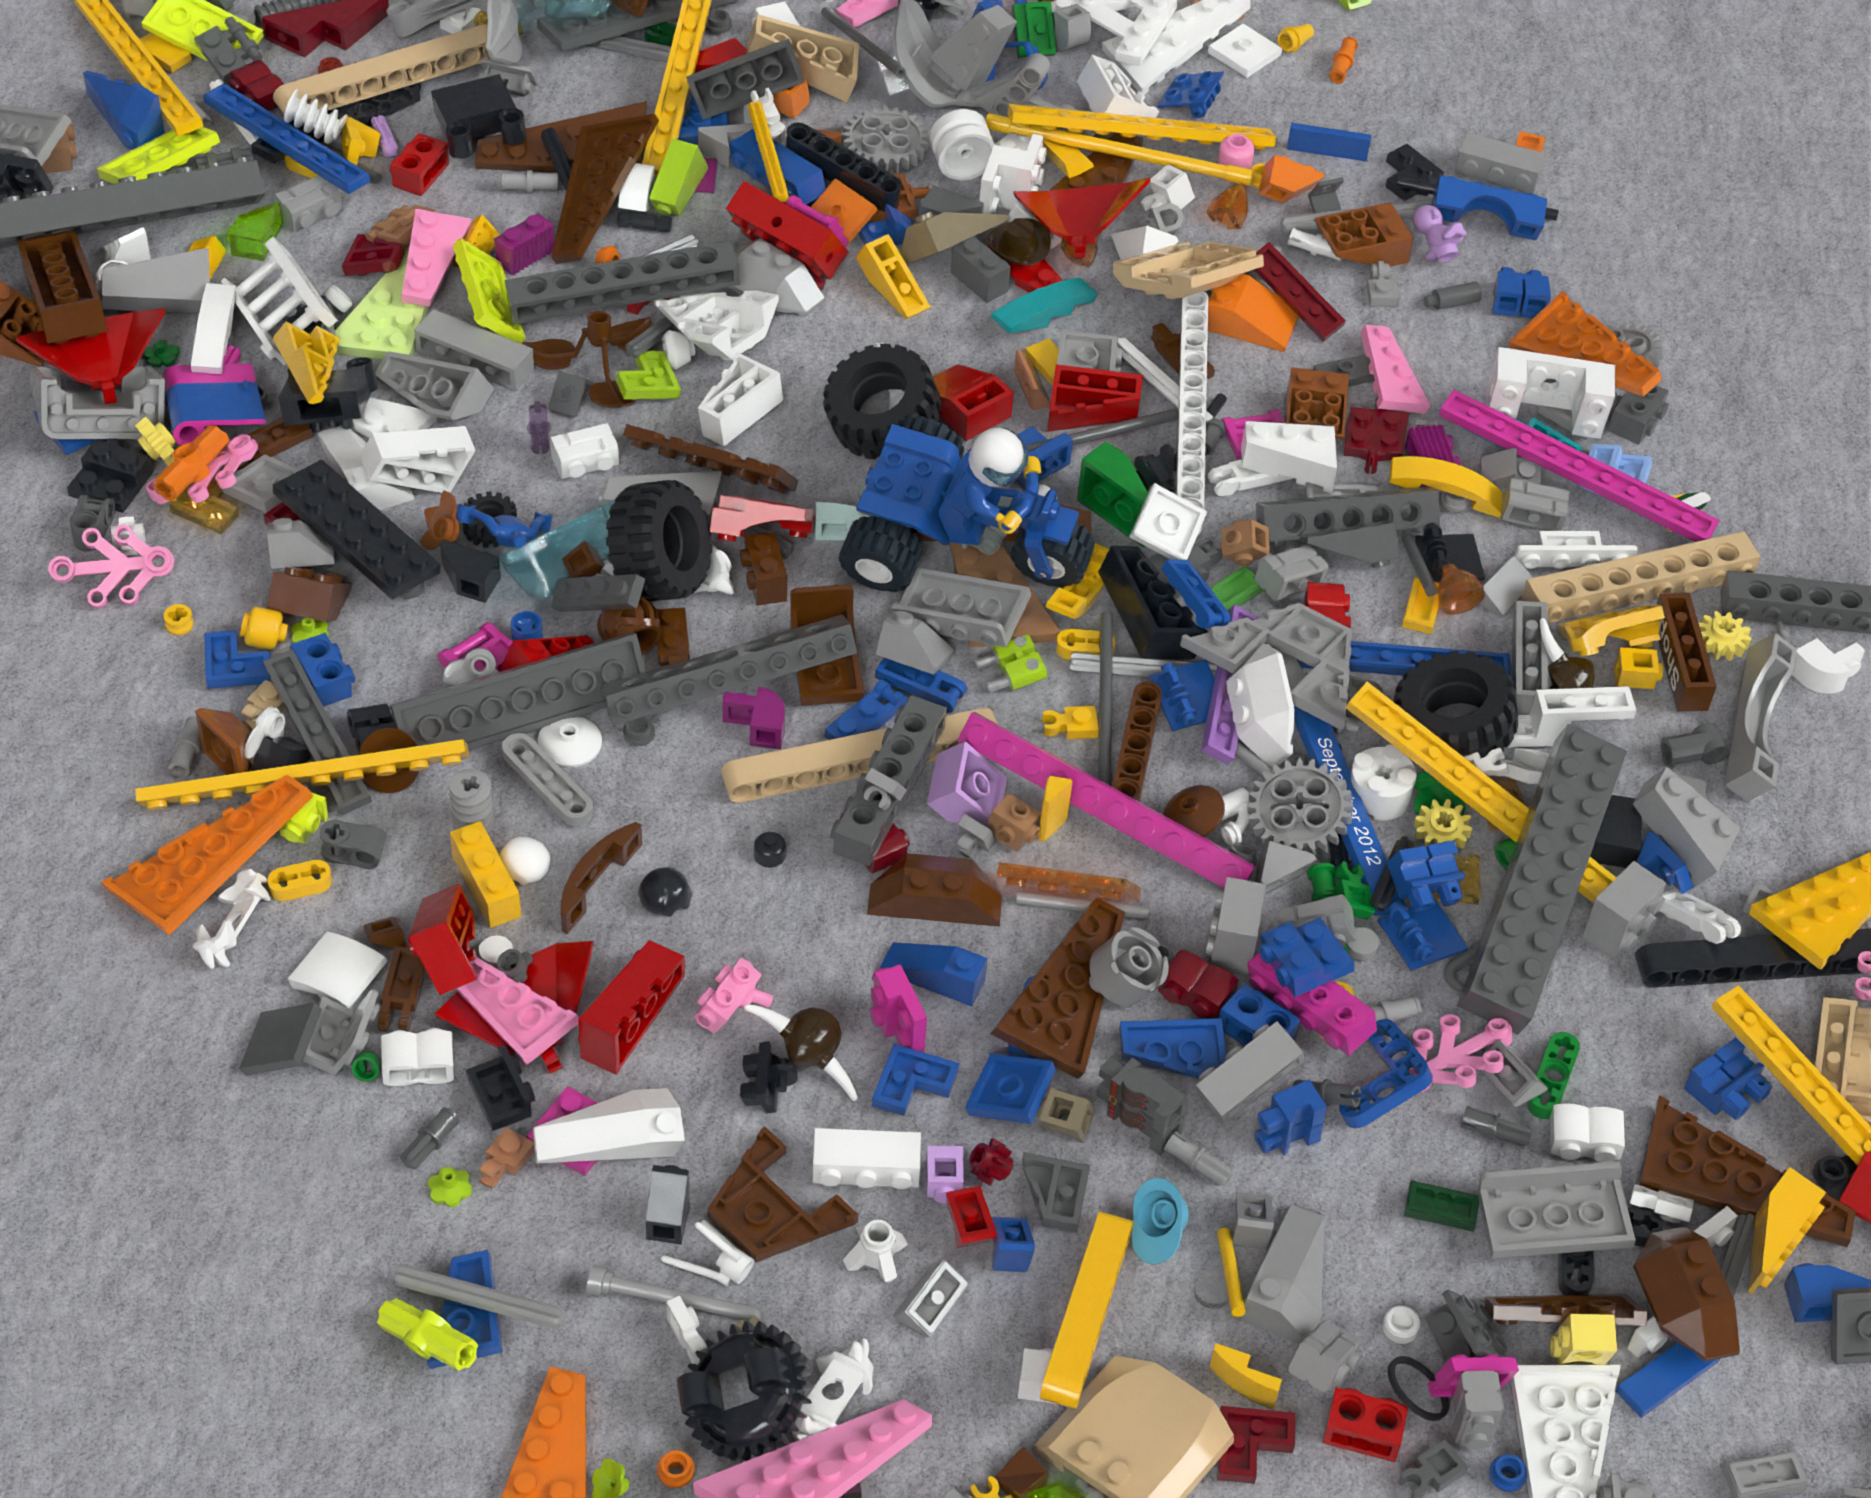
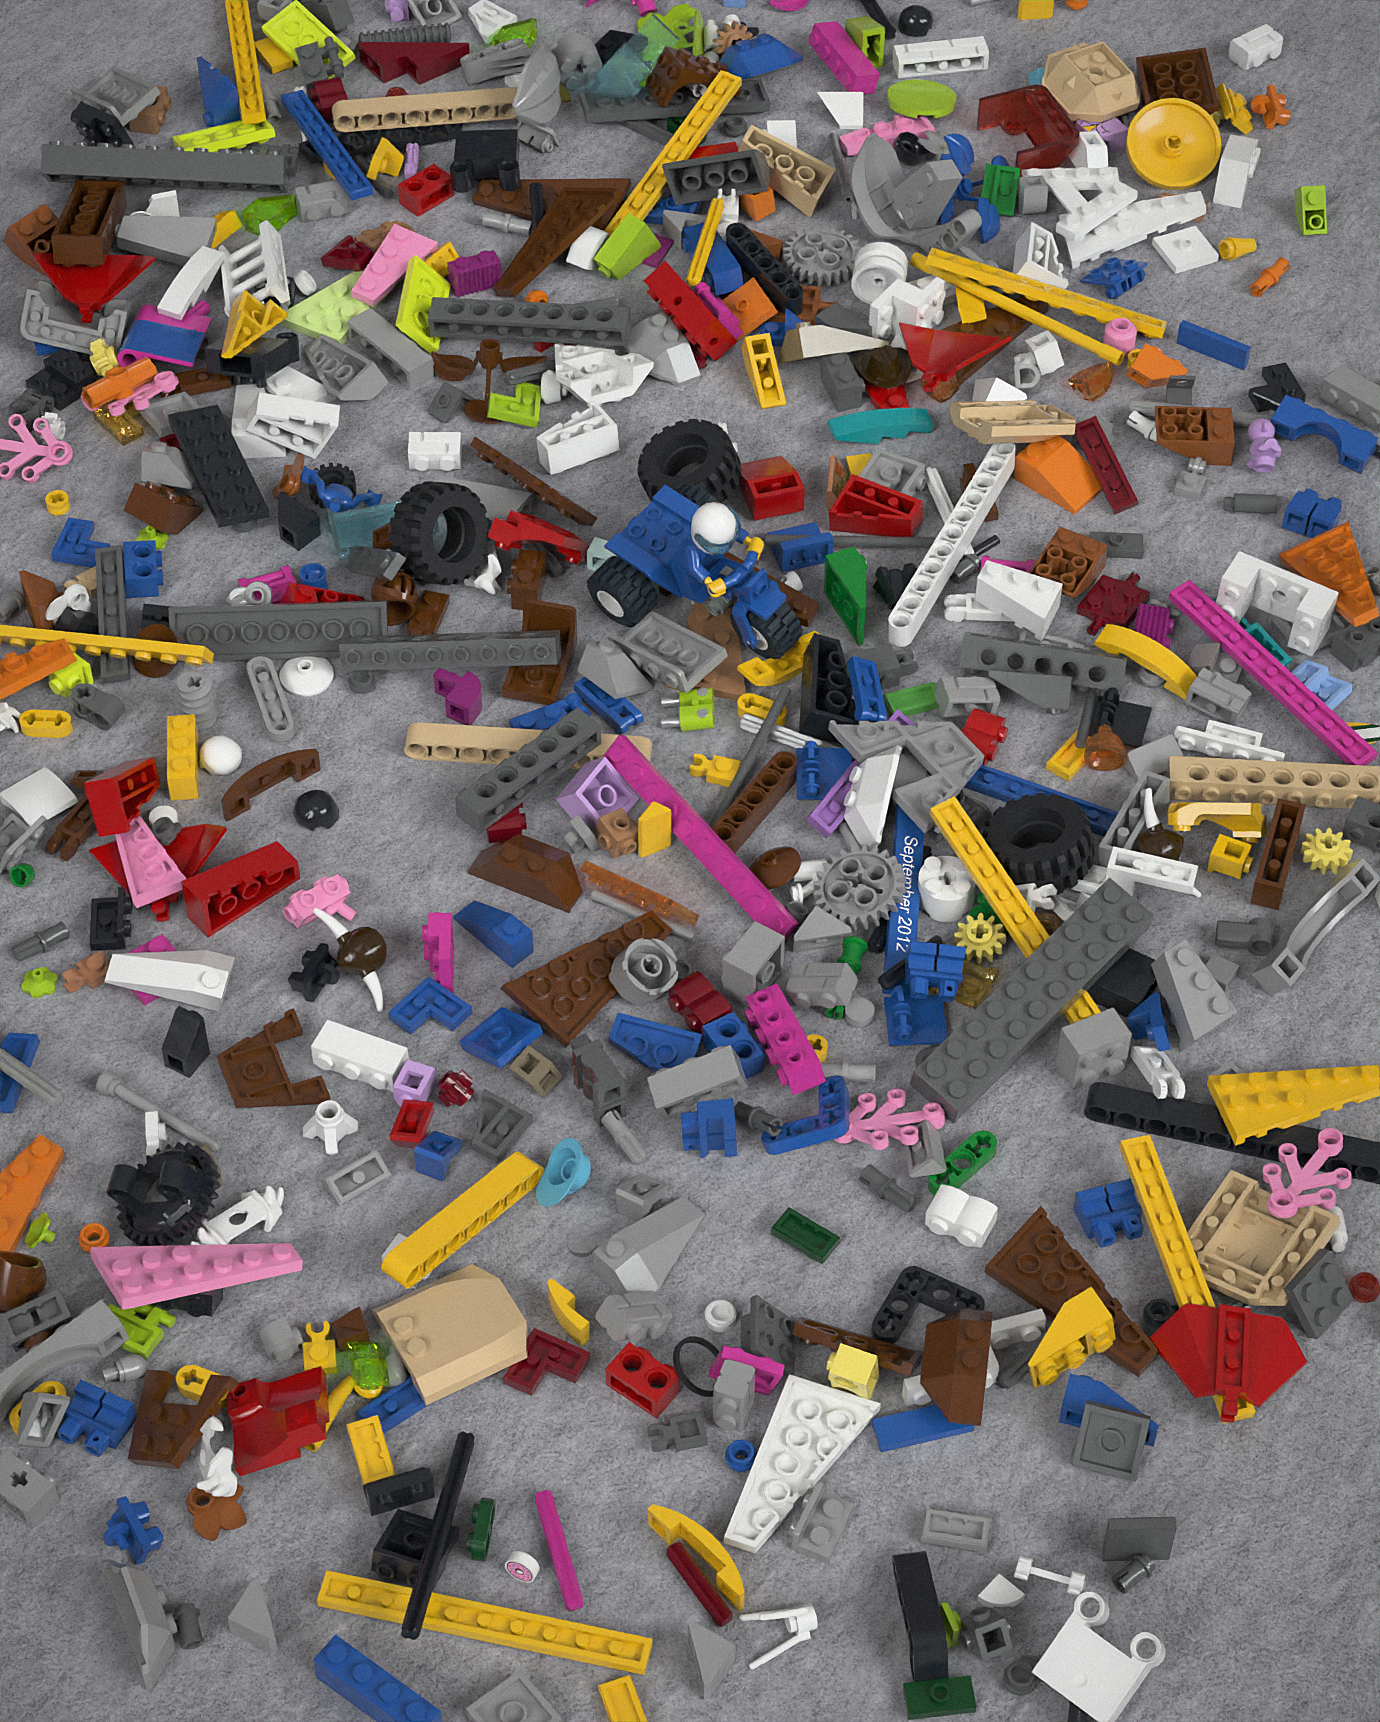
camera: 25 degrees right, 0 degrees up
(161, 354) = (150, 296): green plant -> none
(263, 628) = (114, 525): yellow head -> none
(314, 118) = (351, 133): white piece -> none
(417, 1057) = (61, 879): white brick -> none
(538, 427) = (404, 421): clear purple axle -> none
(644, 221) = (584, 278): black axle -> none
(732, 1262) = (216, 1103): white plant -> none
(769, 849) = (415, 801): black piece -> none
(883, 785) = (509, 771): light grey tile -> none
(1168, 523) = (870, 627): white plate -> none
(1231, 1272) = (599, 1231): yellow bar -> none
(1245, 542) = (938, 661): medium nougat brick -> none
(1304, 955) = (786, 1002): blue plate -> none
(1354, 891) = (869, 968): green plate -> none
(1392, 374) = (1155, 554): bright pink wing -> none
(1555, 1209) = (892, 1265): light grey bracket -> none
(1668, 1205) = (998, 1294): white plate -> none

